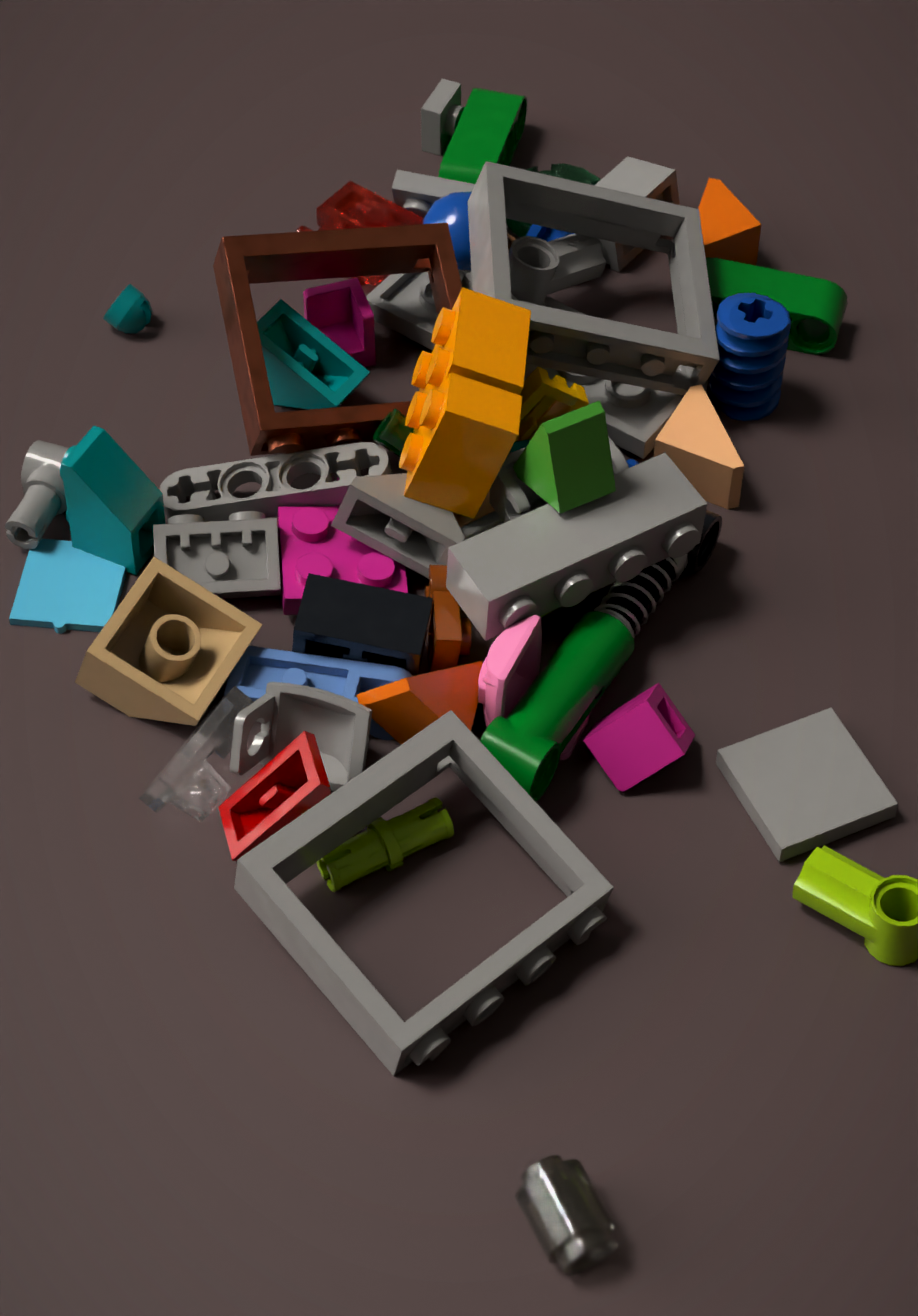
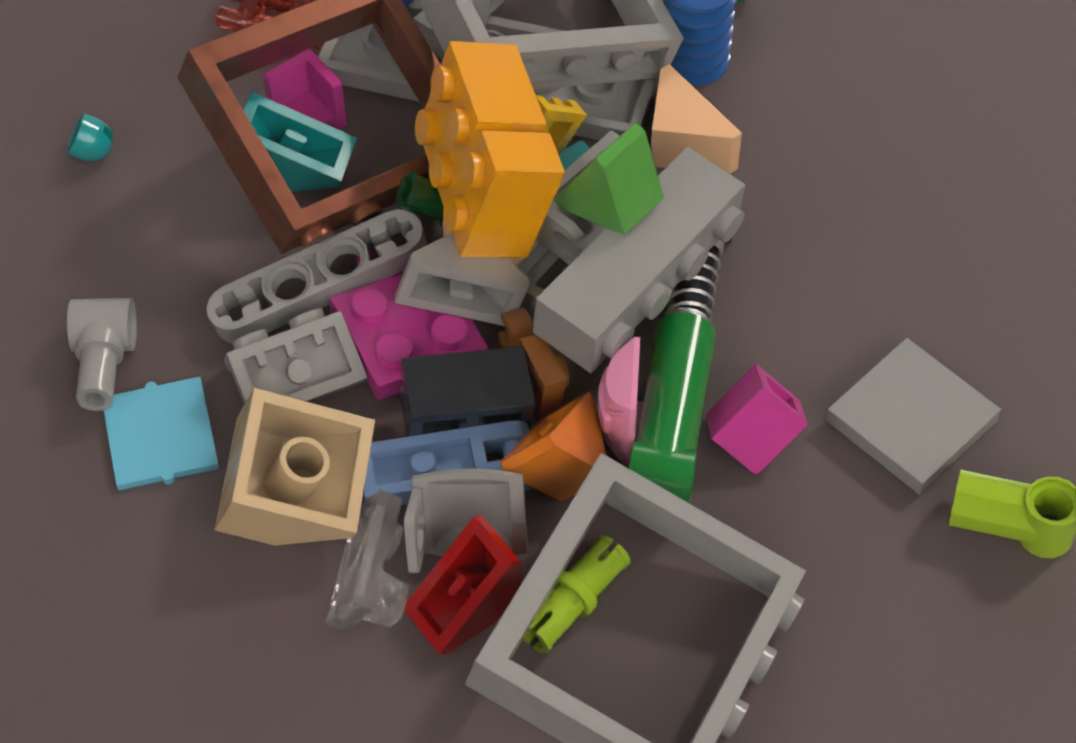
camera: 20 degrees left, 5 degrees up
(110, 501) = (174, 342): teal slope -> none

